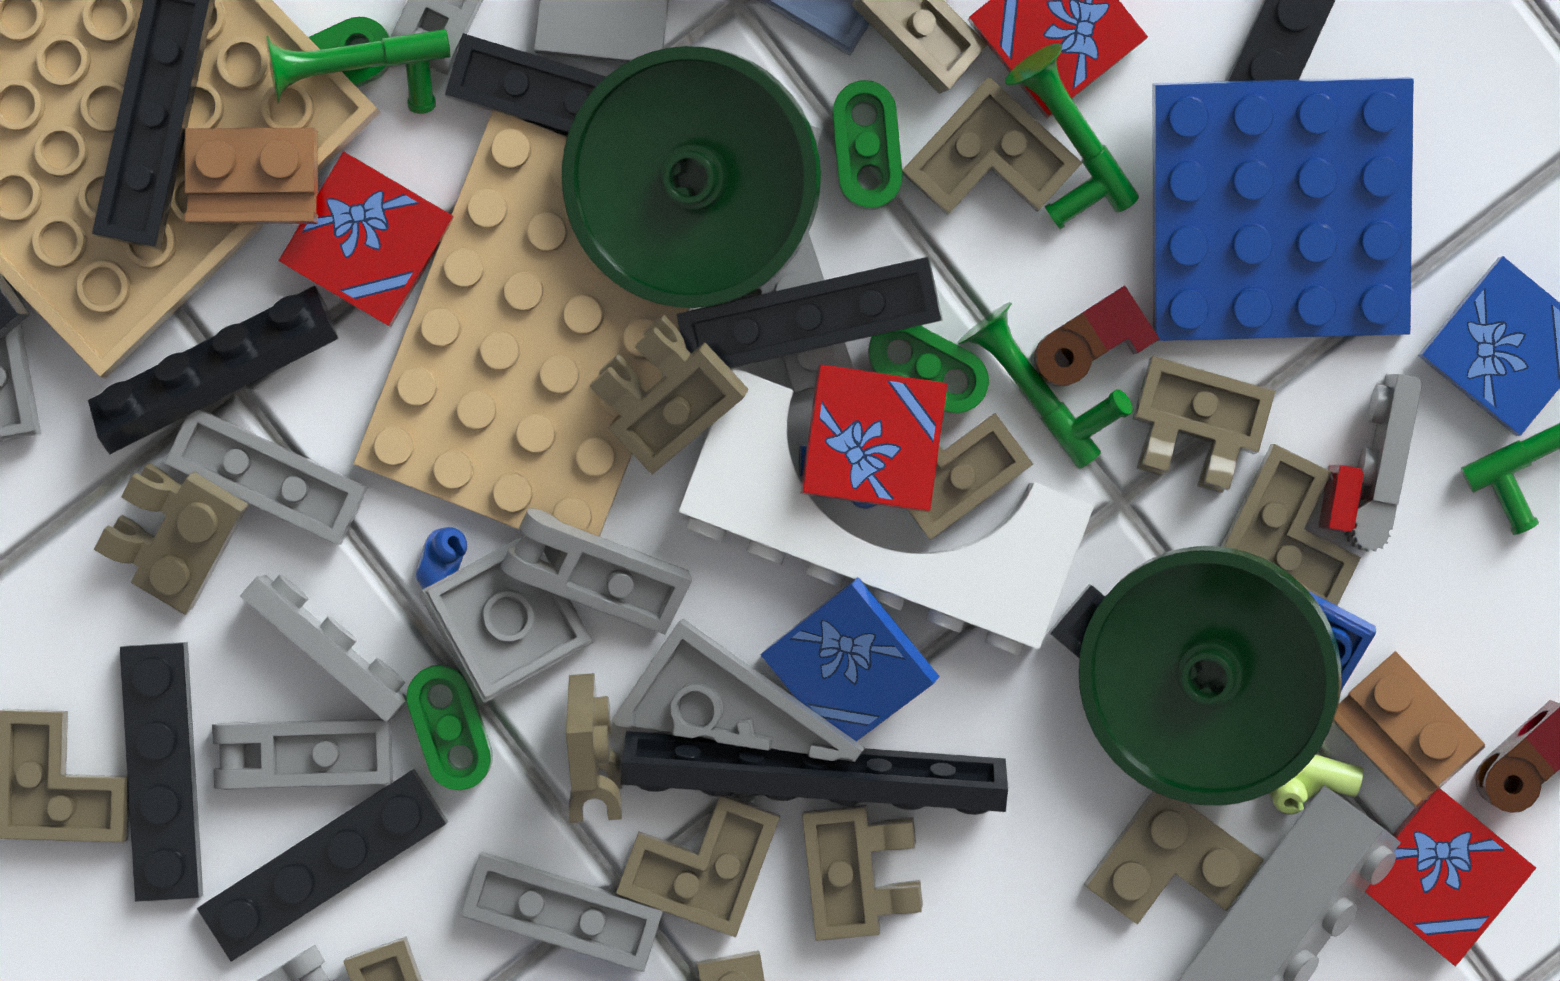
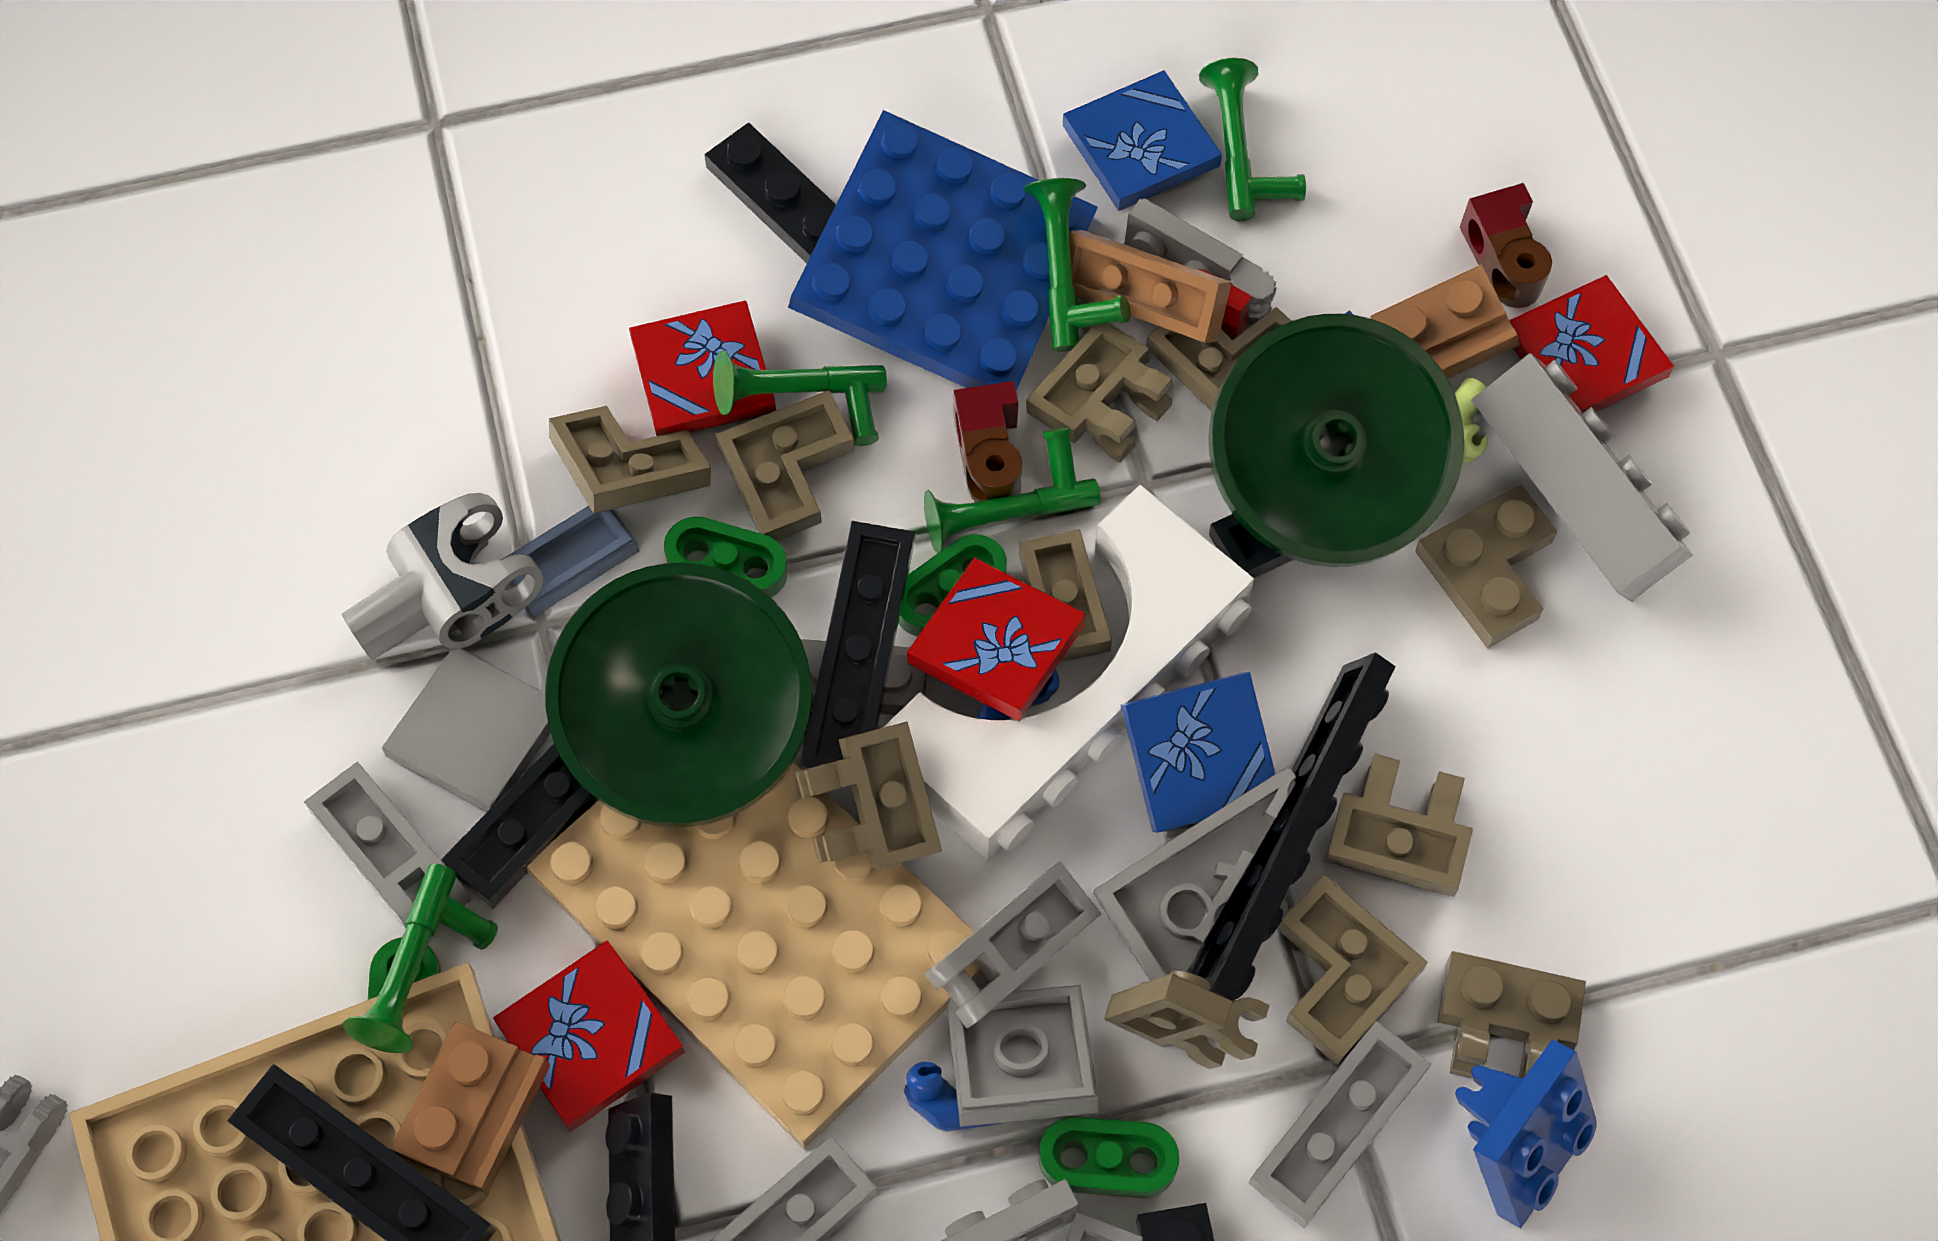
camera: 70 degrees left, 25 degrees down
(1262, 356) = (1066, 317): none -> green piece
(1320, 421) = (1155, 287): none -> medium nougat plate

